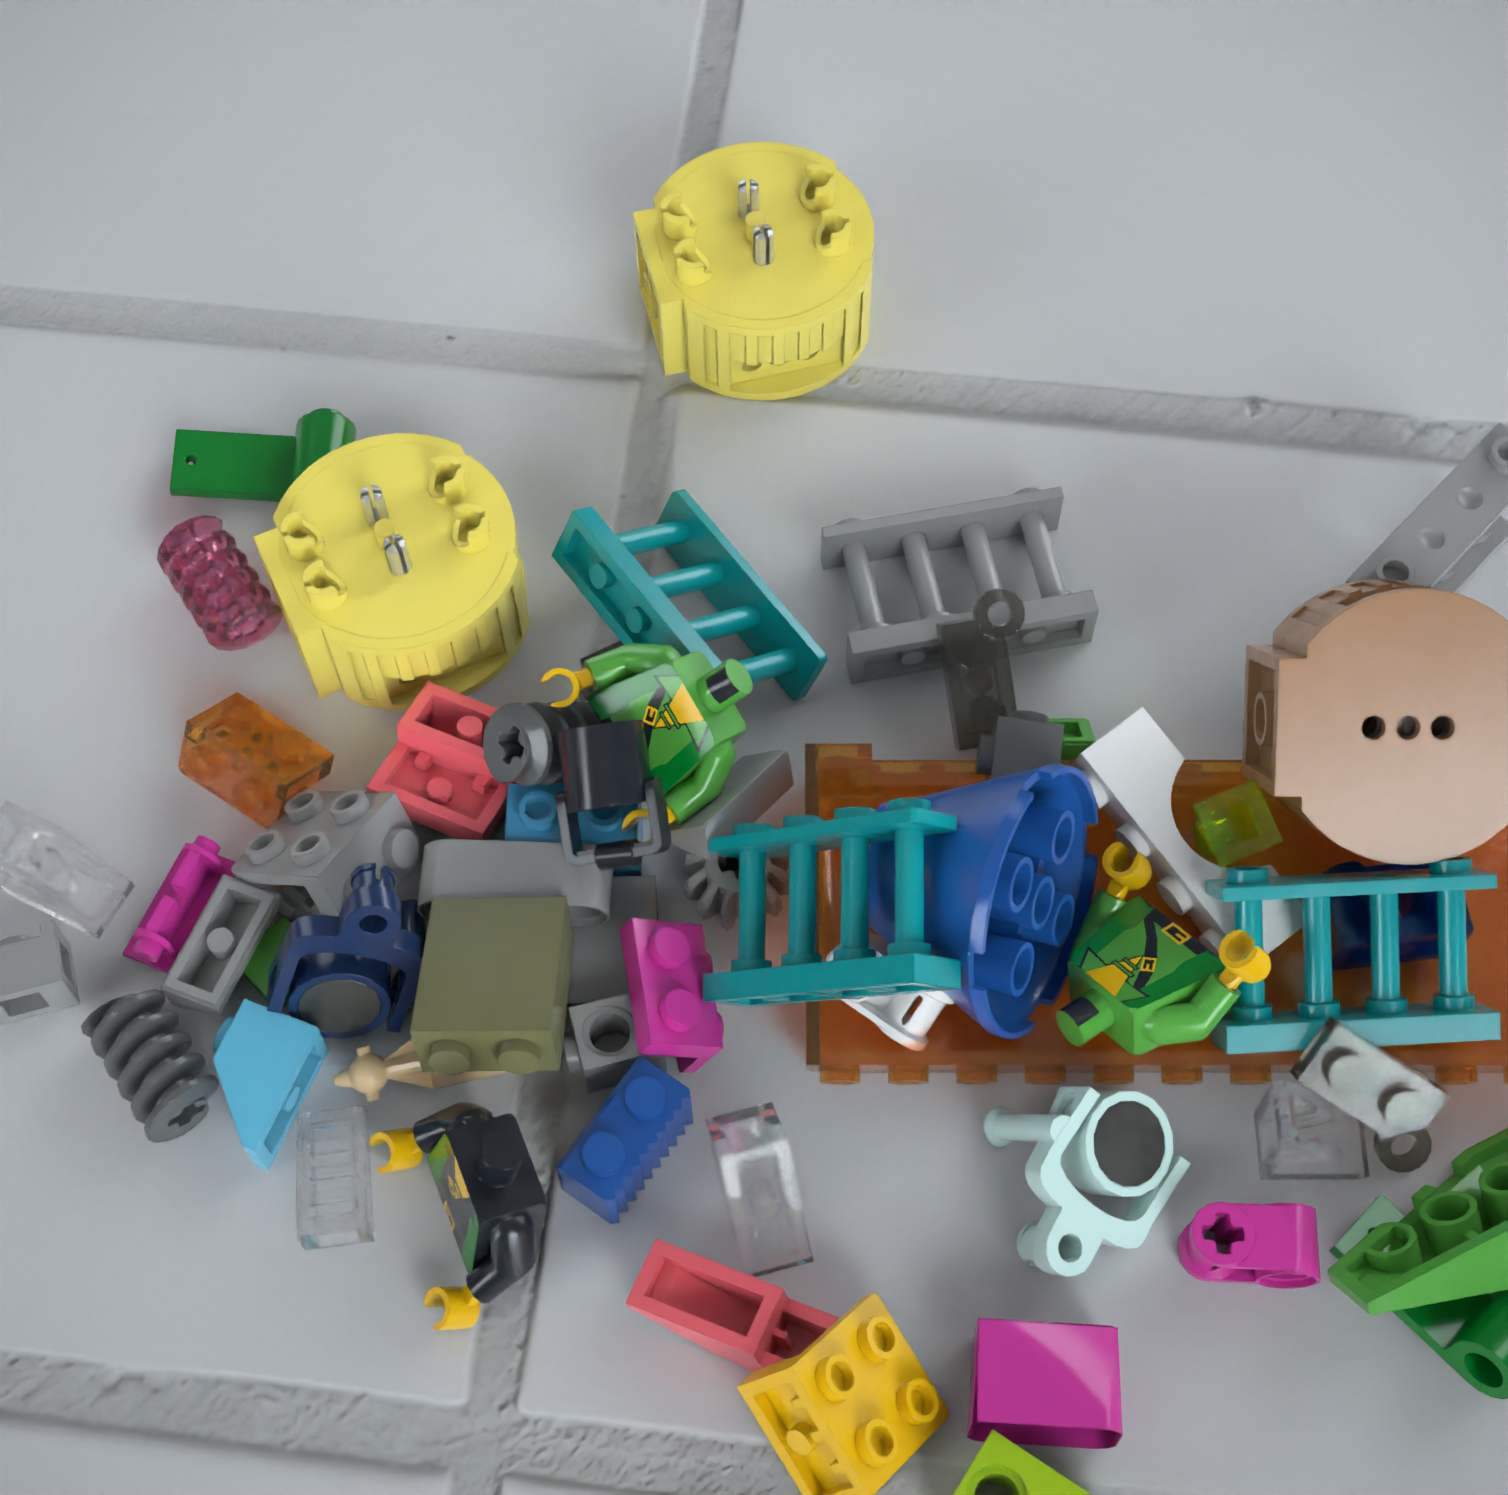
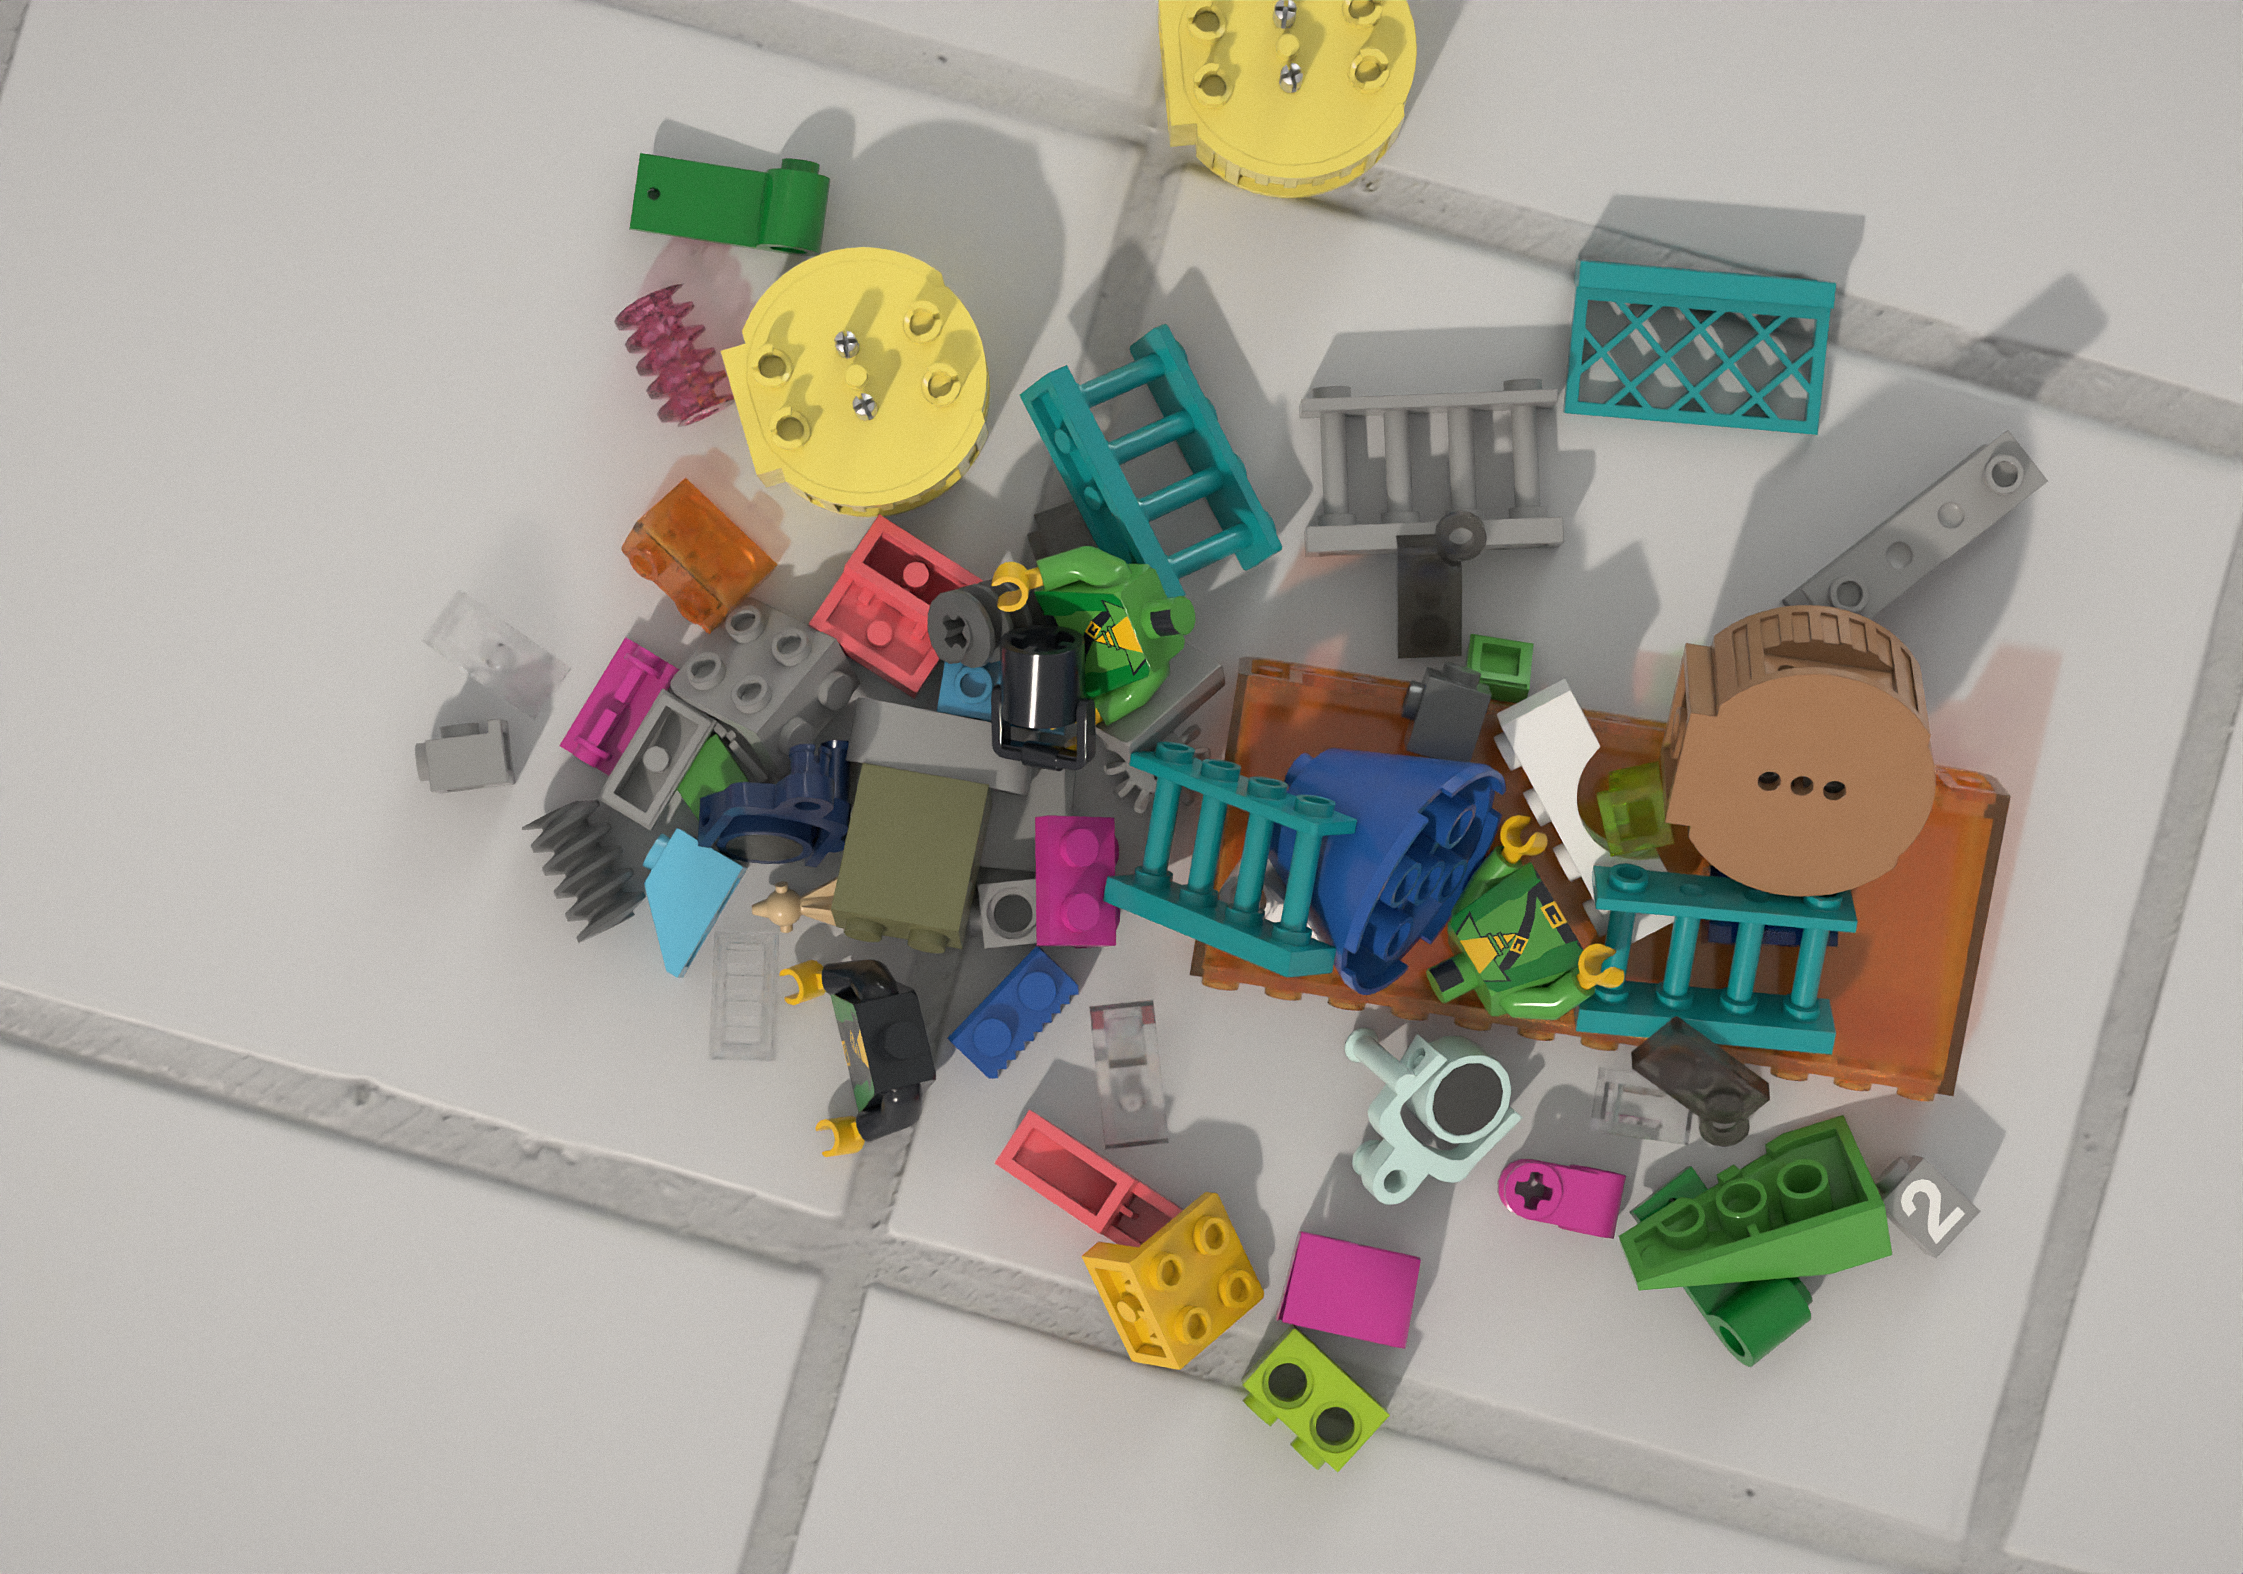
camera: 10 degrees right, 25 degrees up
(1183, 402) = (1703, 291): none -> teal fence

